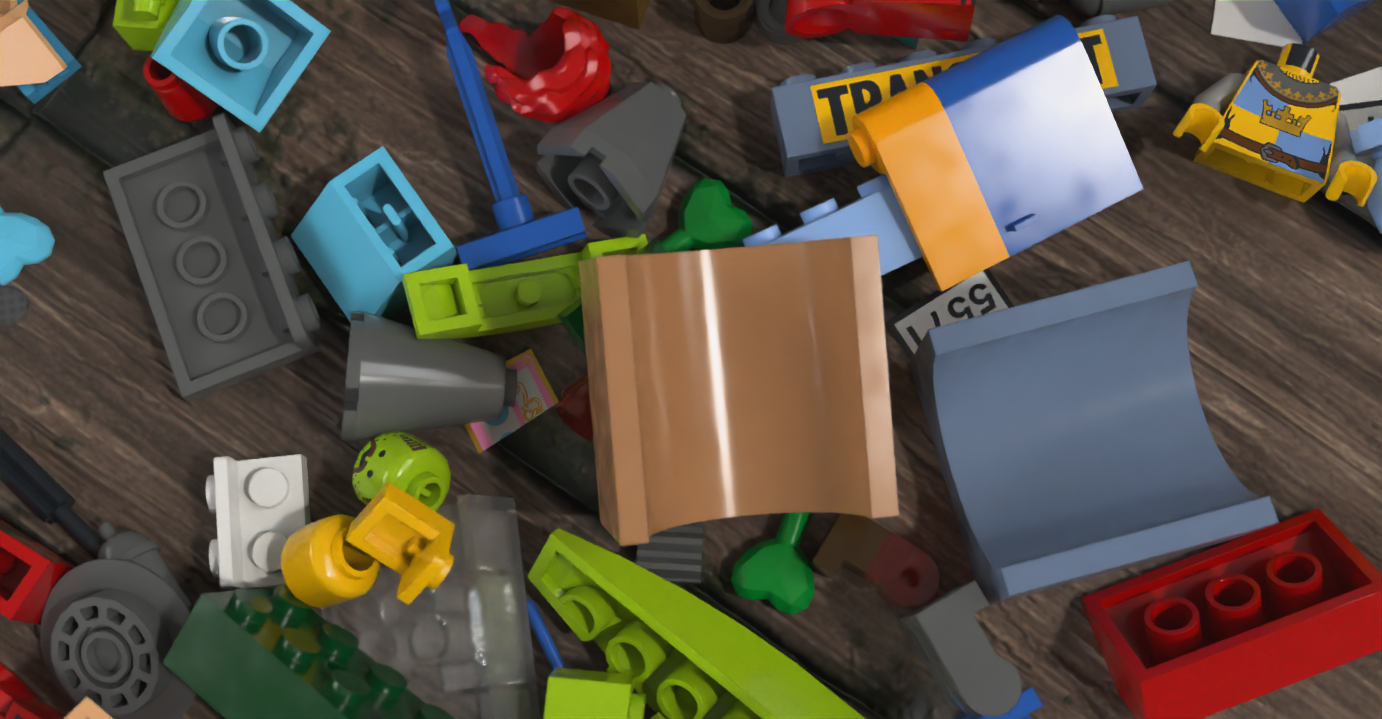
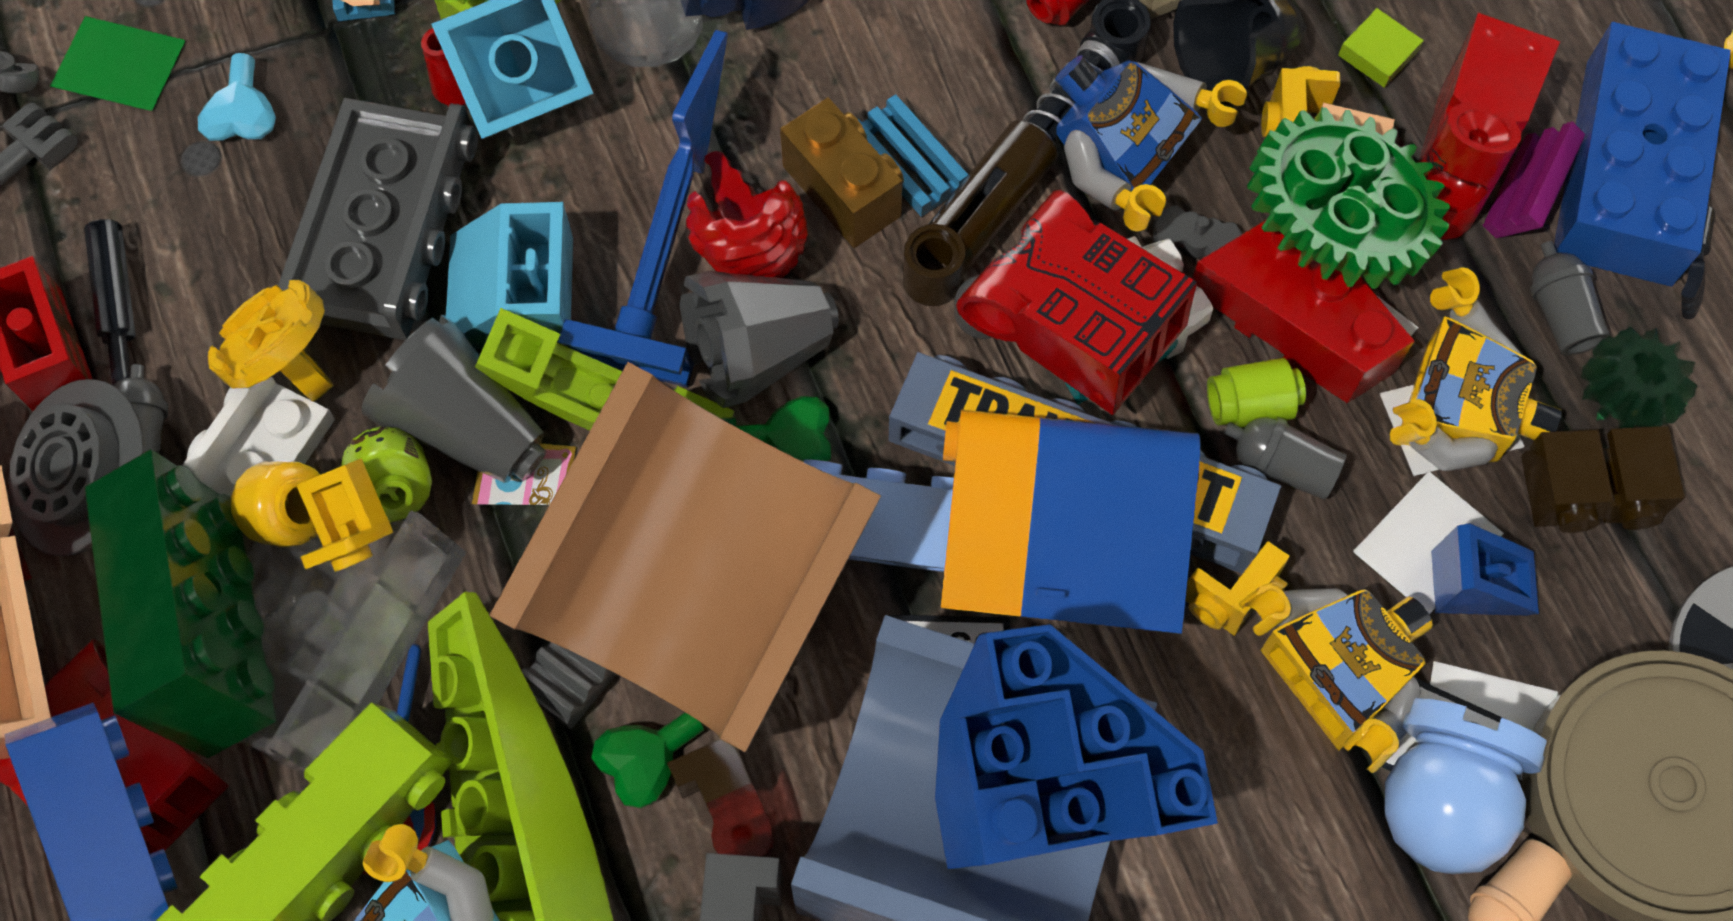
camera: 30 degrees right, 10 degrees down
(212, 427) = (270, 337): none -> yellow tile
(1136, 354) = (1056, 756): none -> blue brick
(1161, 115) = (1218, 605): none -> yellow bracket

